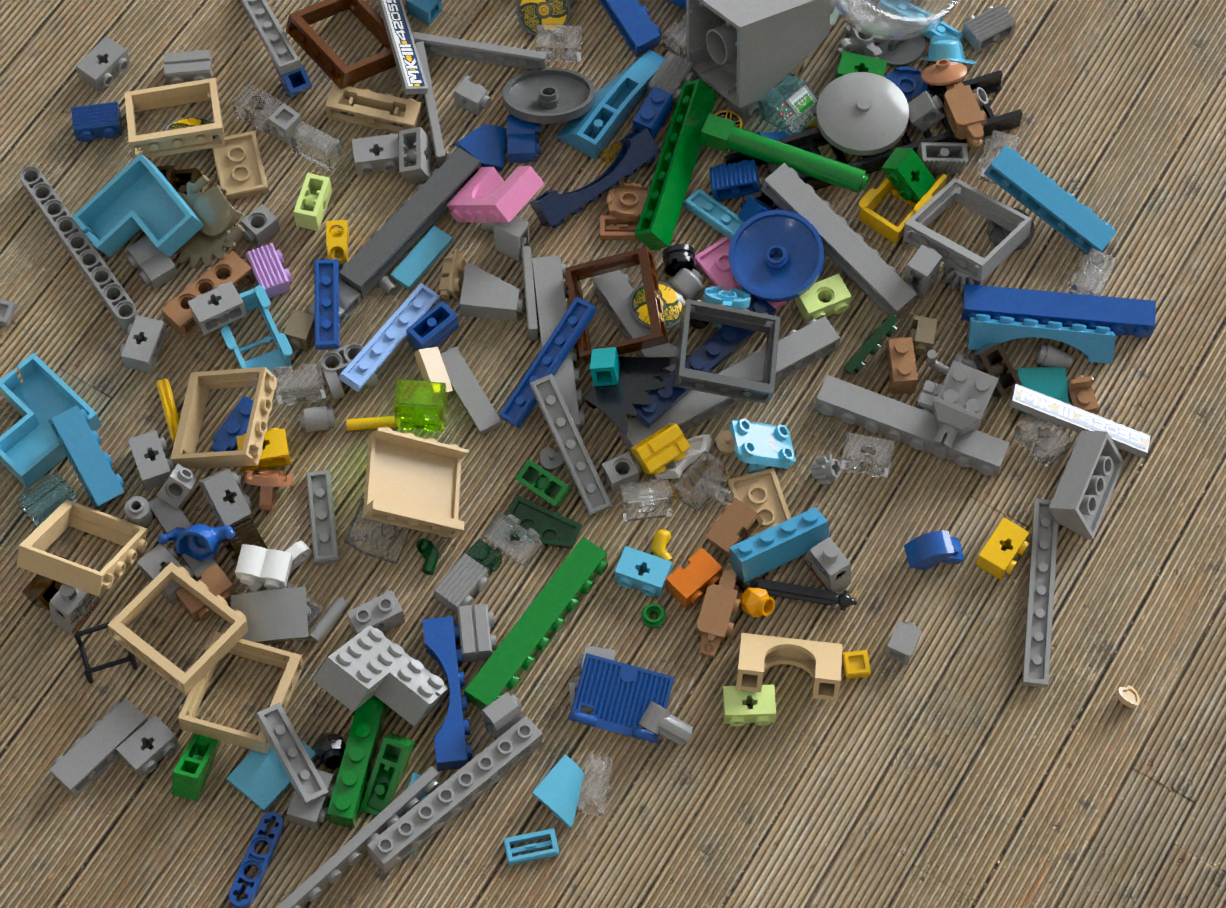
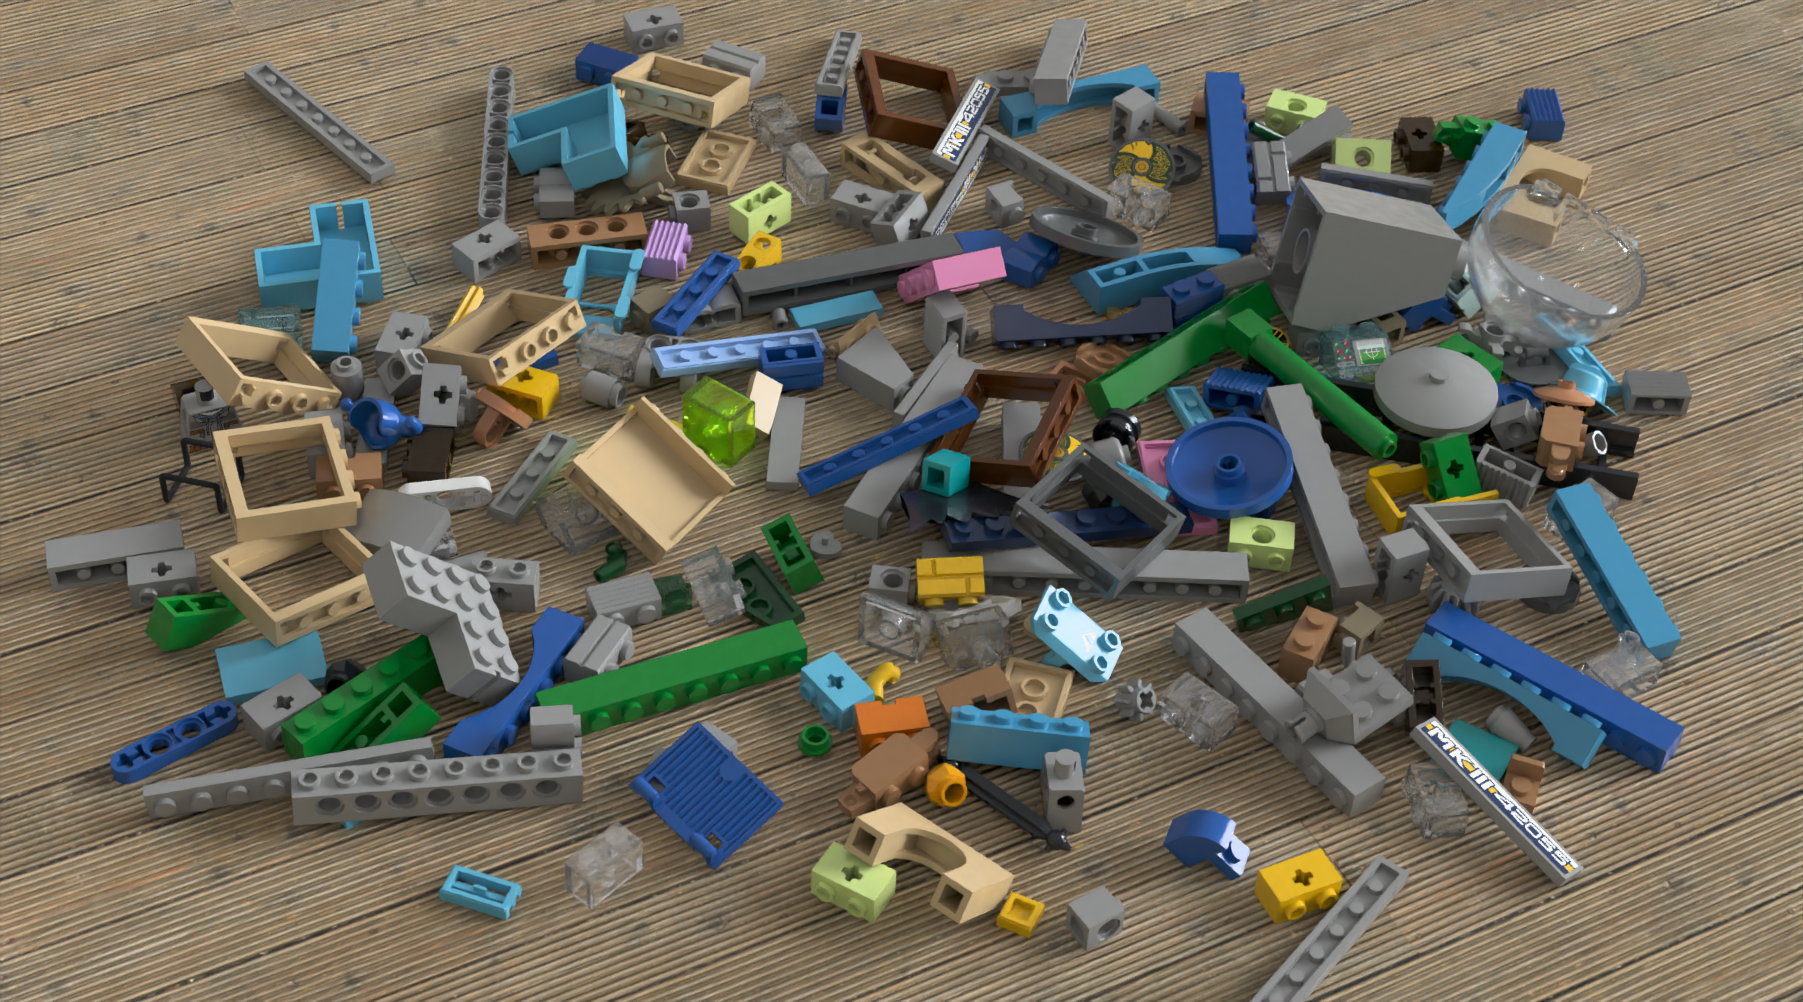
camera: 30 degrees right, 20 degrees down
(217, 308) = (578, 242): light grey brick -> none
(263, 566) = (423, 471): white brick -> none
(283, 122) = (786, 134): light grey brick -> none
(291, 754) = (291, 646): light grey plate -> none
(561, 790) = (553, 845): medium azure slope -> none
(570, 445) = (851, 533): light grey tile -> none
(661, 721) = (732, 840): light grey piece -> none
(1087, 483) = (1459, 870): light grey slope -> none

